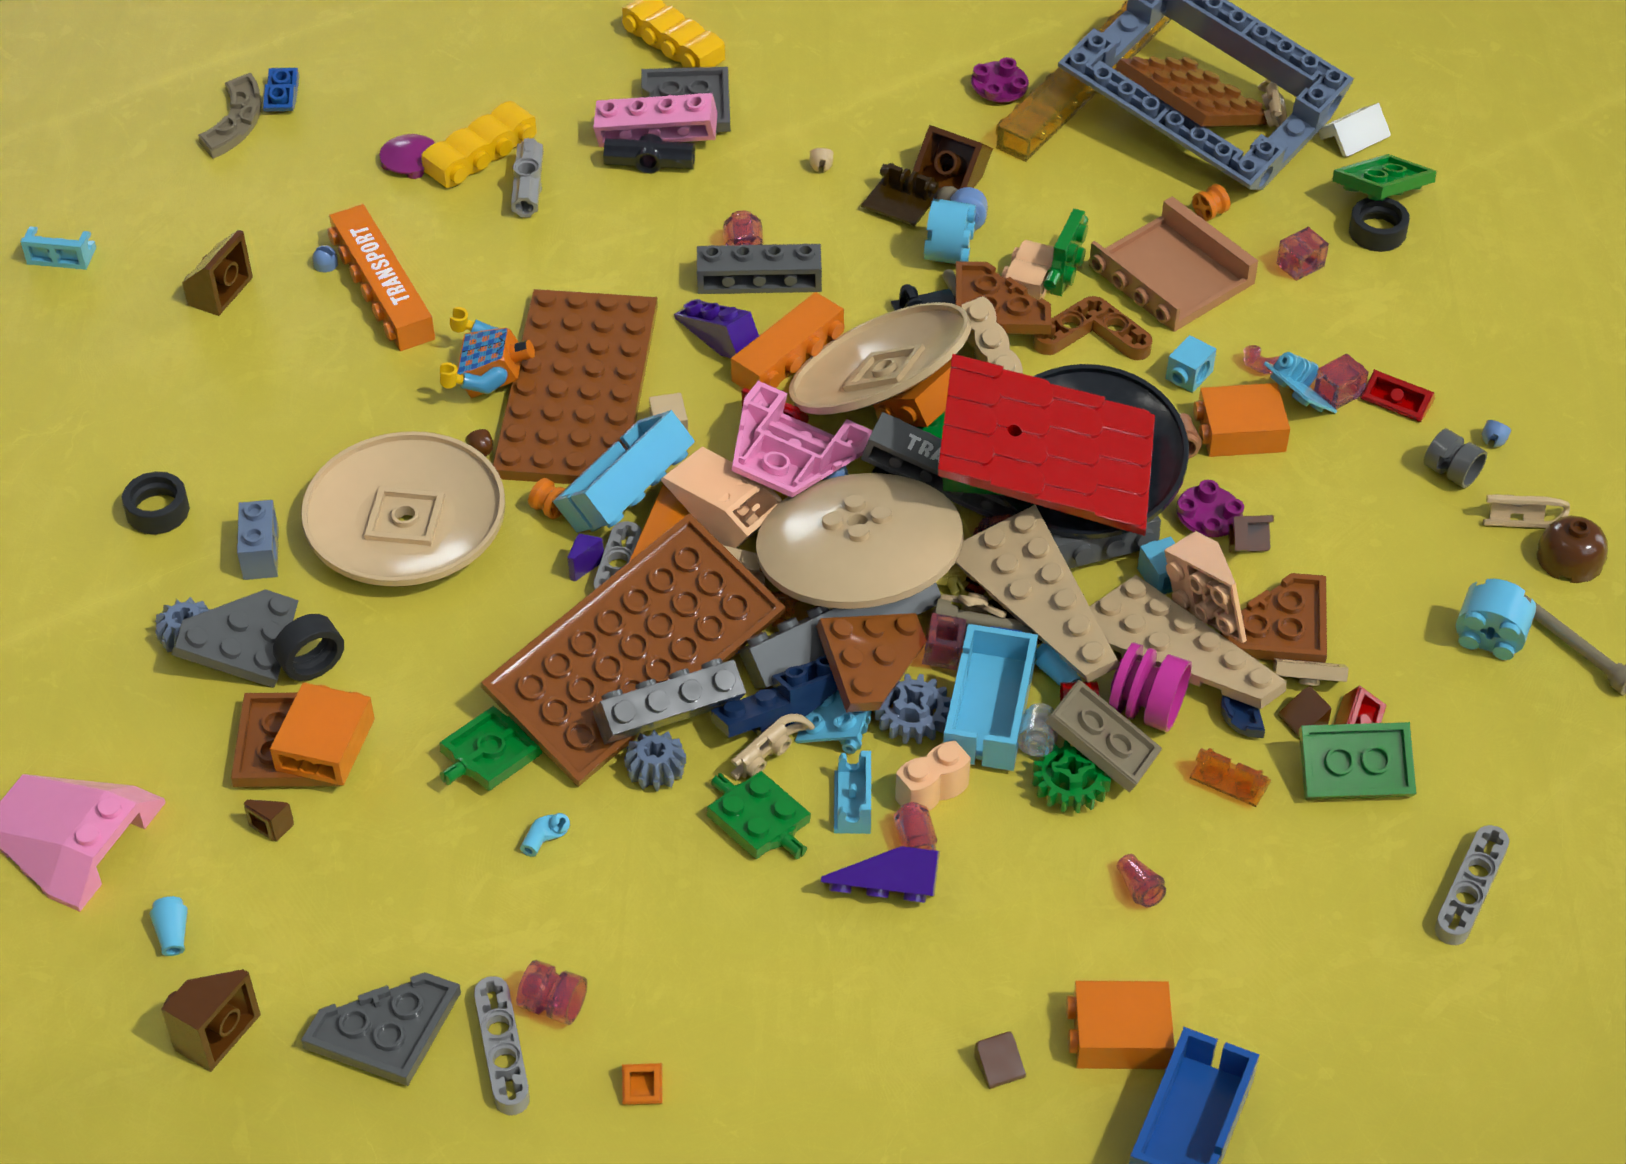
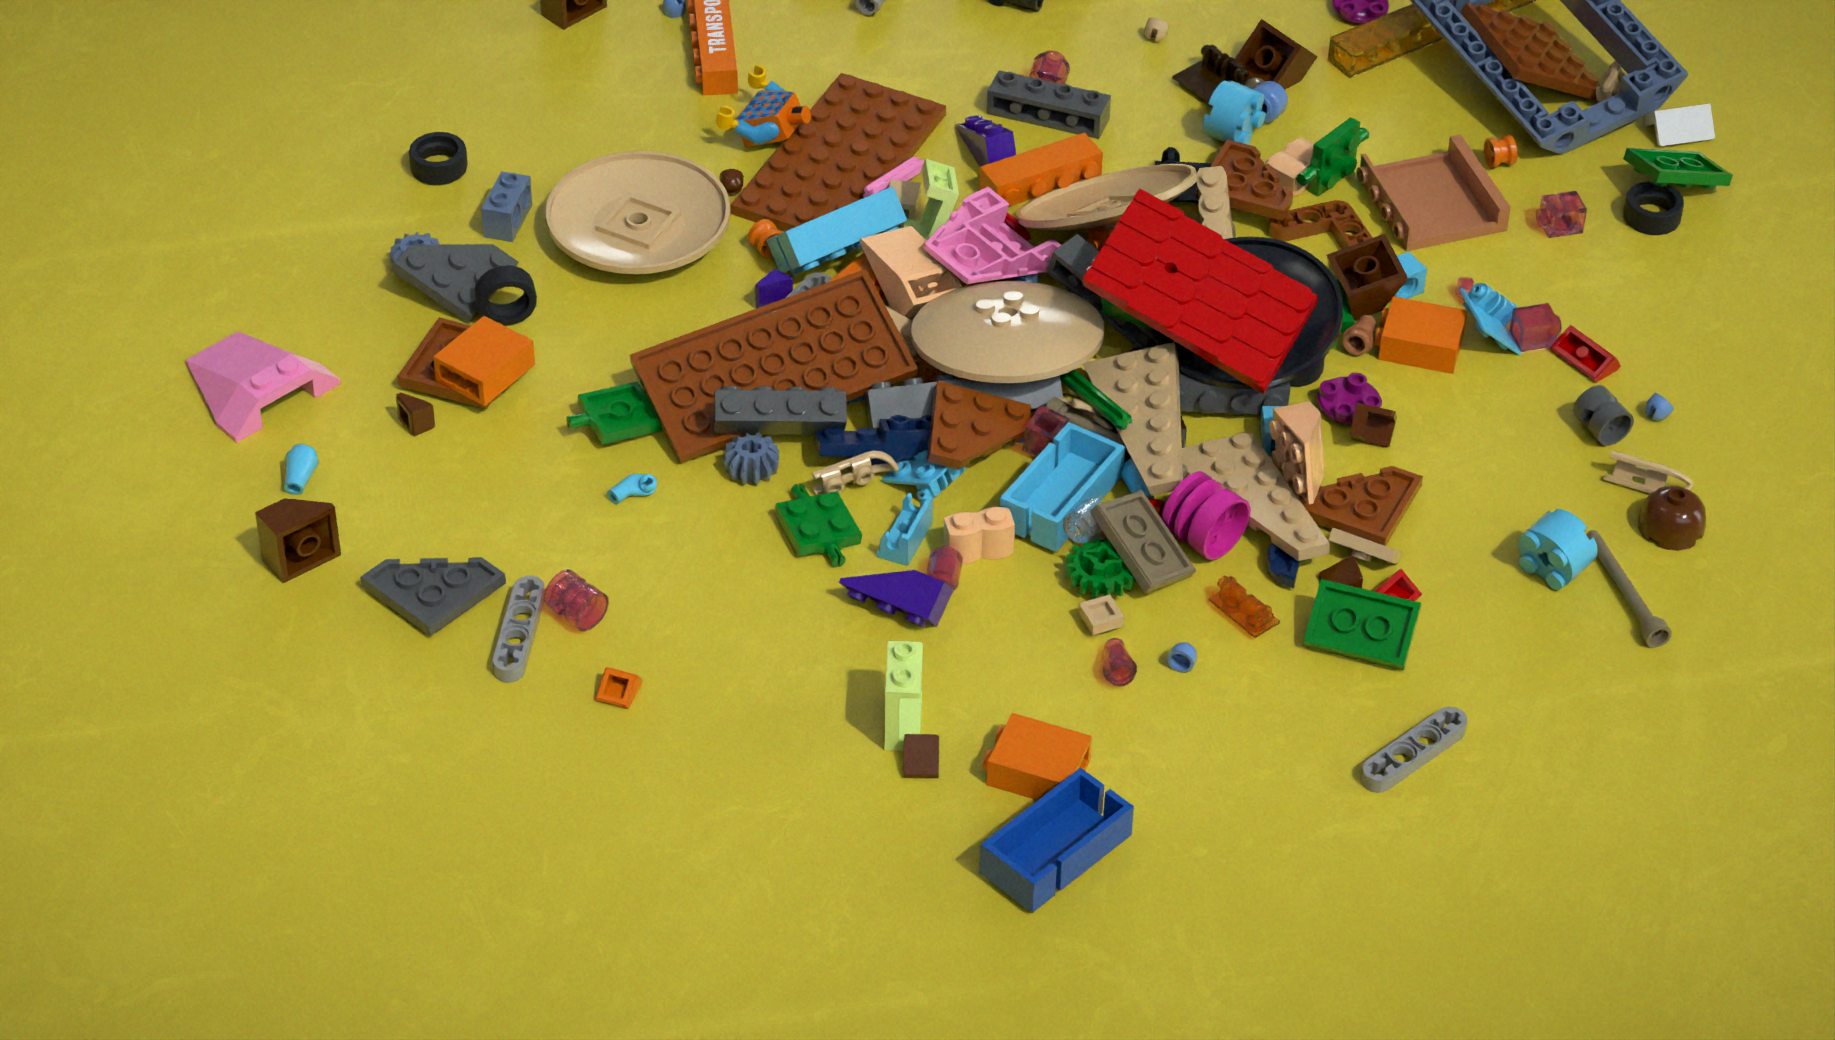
camera: 20 degrees right, 5 degrees down
(648, 388) = (902, 172): none -> bright pink axle
(717, 414) = (942, 190): none -> yellowish green panel
(913, 709) = (988, 478): sand blue gear -> none
(954, 994) = (902, 692): none -> yellowish green panel
(989, 592) = (1096, 399): none -> green axle
(1096, 830) = (1101, 614): none -> tan plate
(1170, 366) = (1367, 275): none -> reddish brown slope
(1200, 853) = (1182, 657): none -> medium blue hinge

